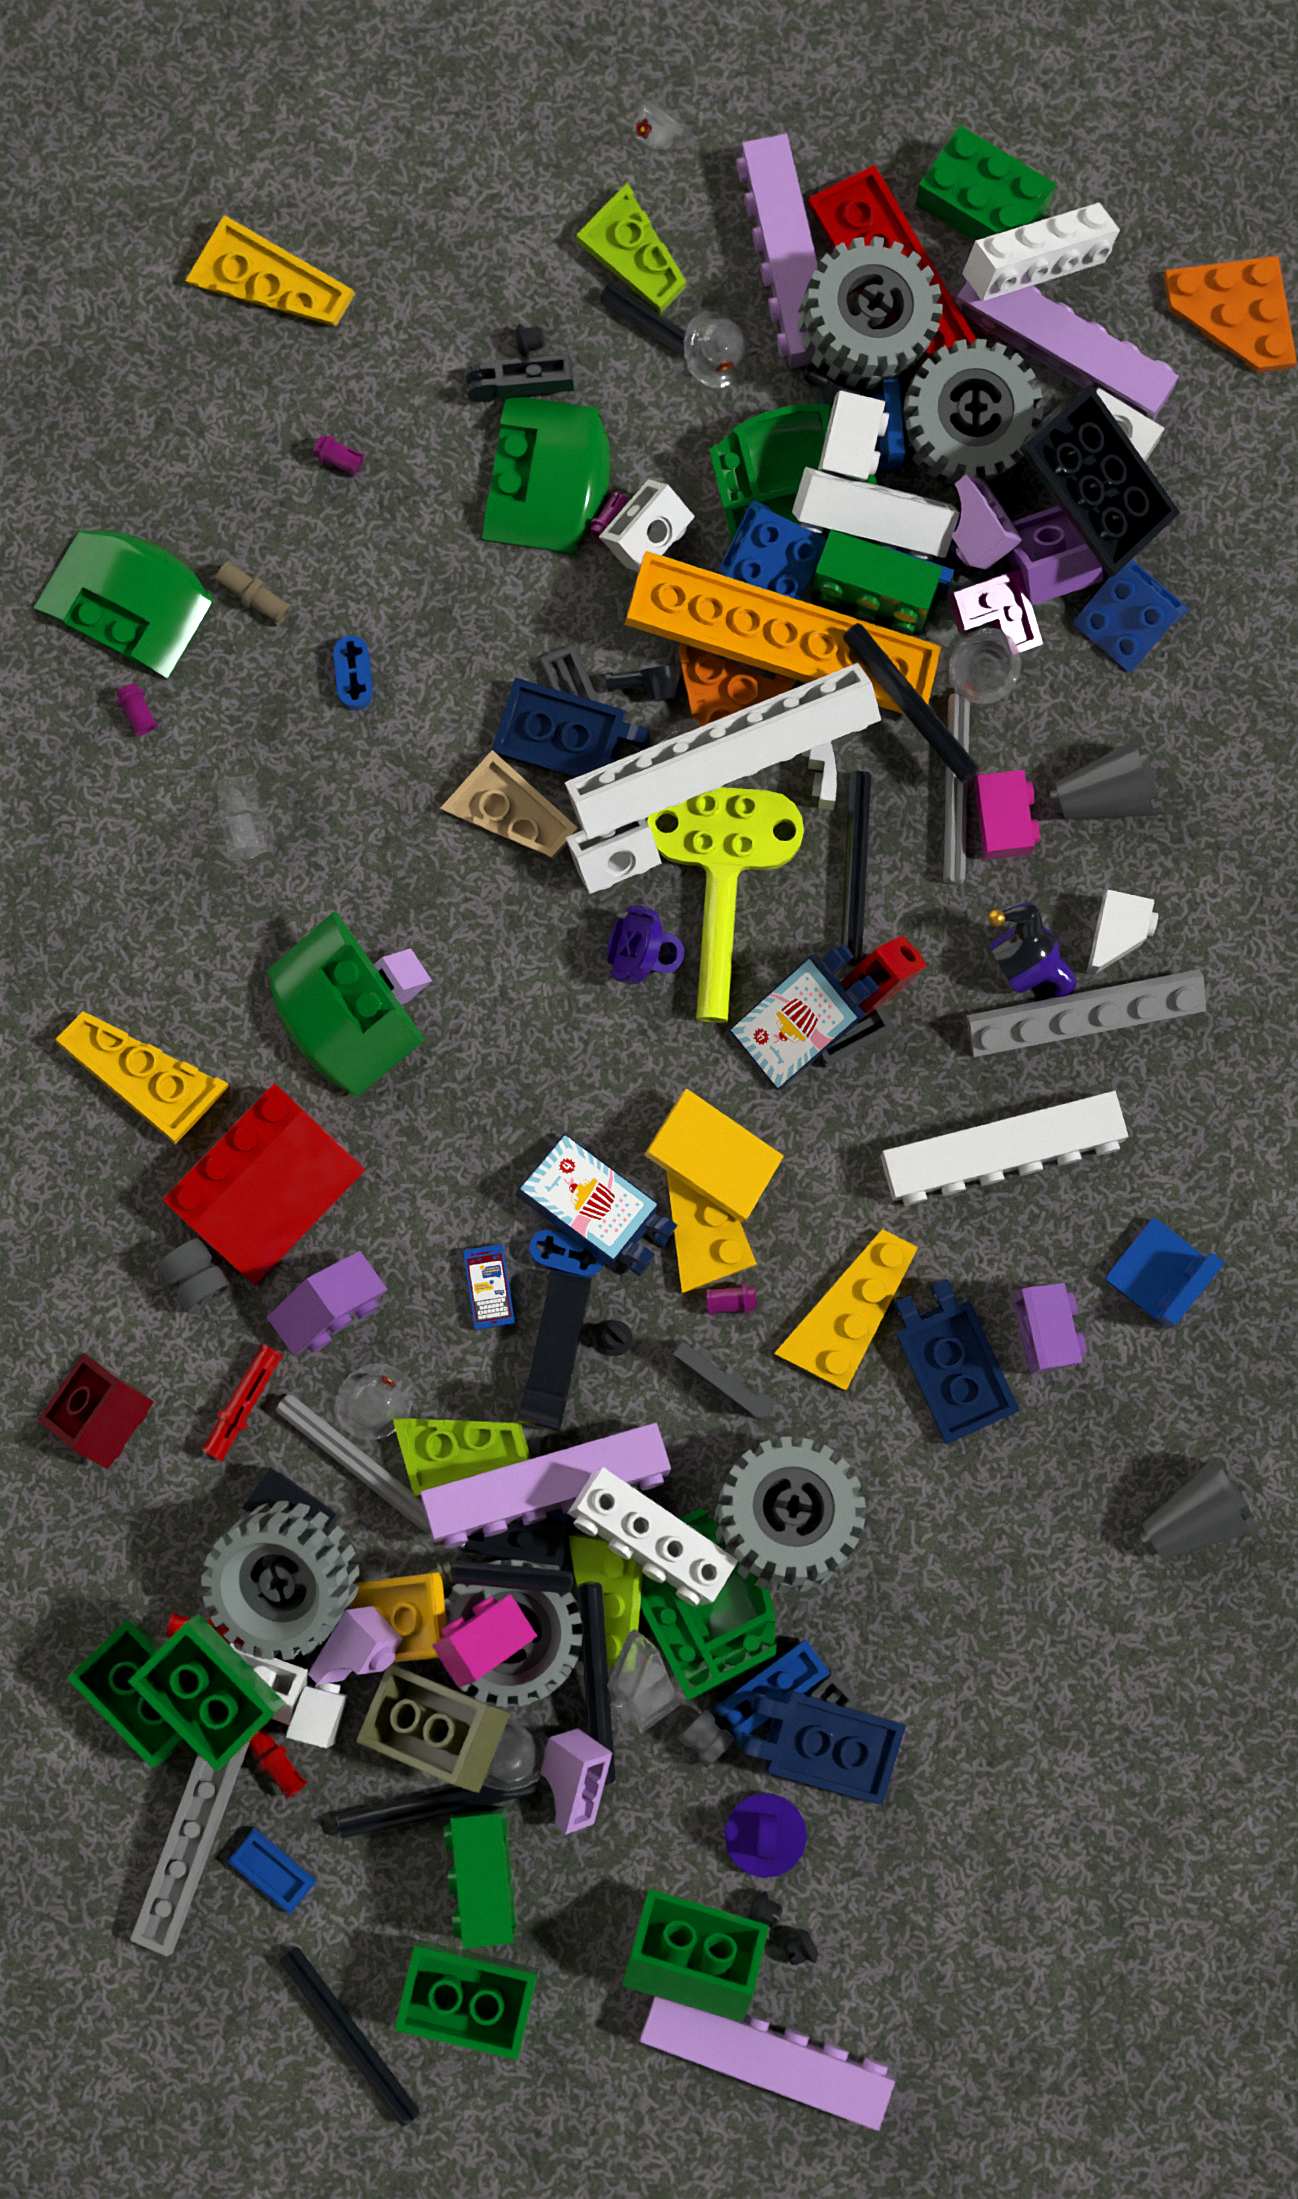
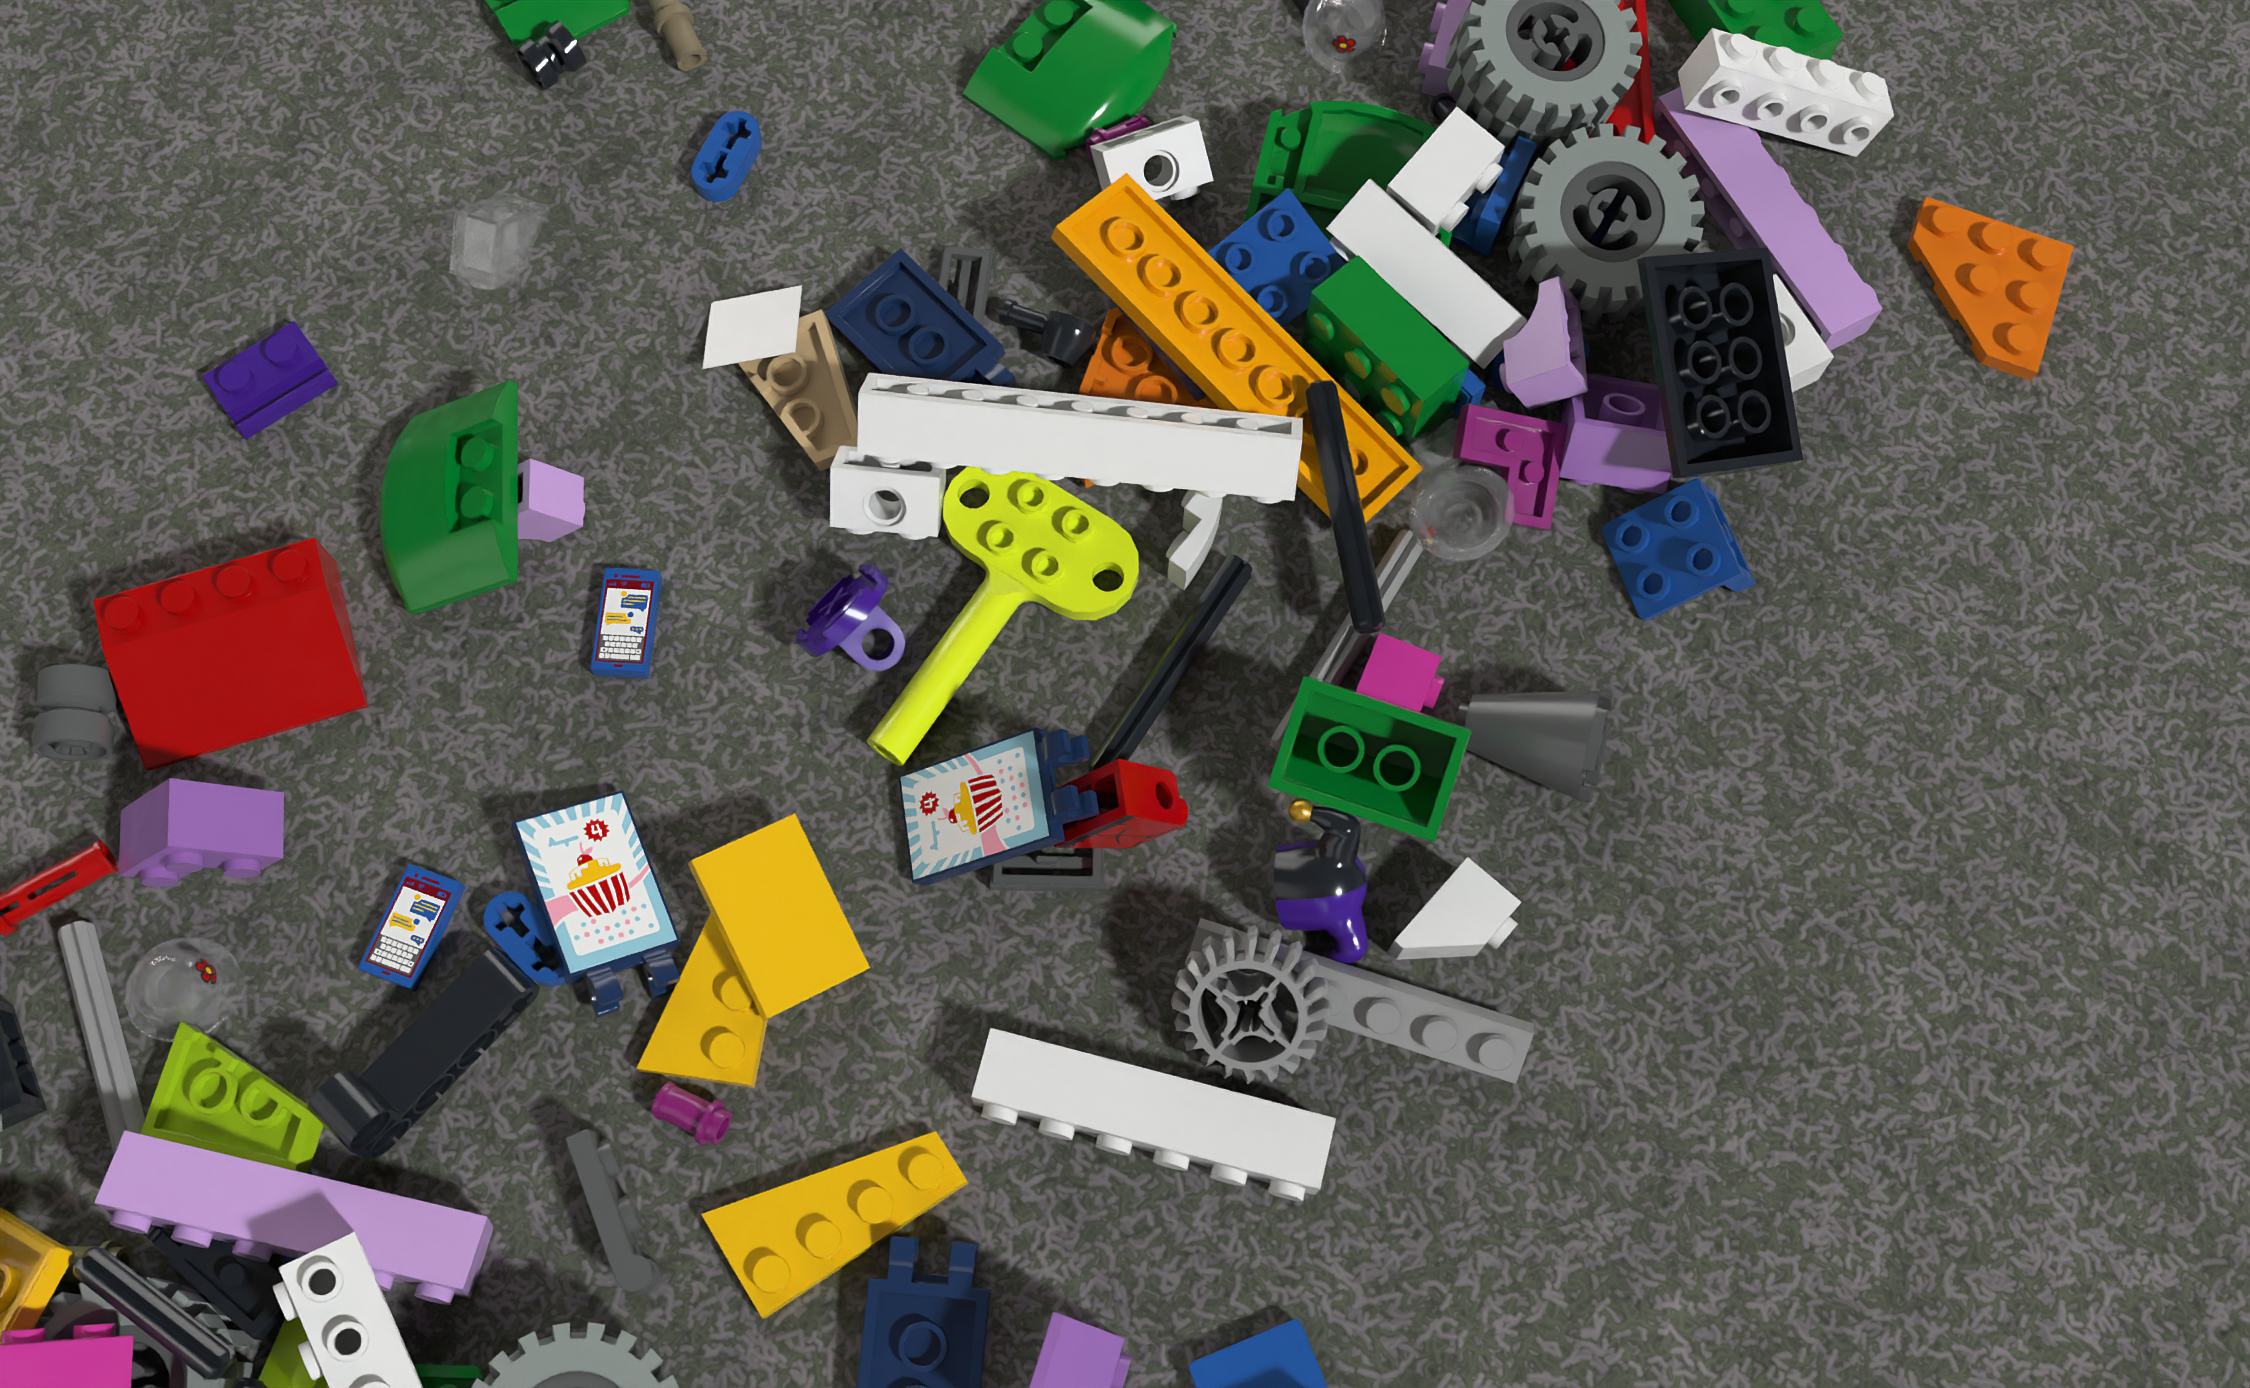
camera: 25 degrees right, 10 degrees down
(136, 709) = (467, 62): magenta pin -> none
(154, 995) = (270, 380): none -> dark purple plate
(155, 1085) = (192, 467): yellow wing -> none
(188, 665) = (551, 55): none -> black wheel
(451, 785) = (752, 327): none -> white sticker
(495, 1026) = (626, 623): none -> tile
(614, 1338) = (520, 1079): black piece -> none
(1020, 861) = (1369, 758): none -> green slope
(1037, 1069) = (1281, 1035): none -> light grey gear

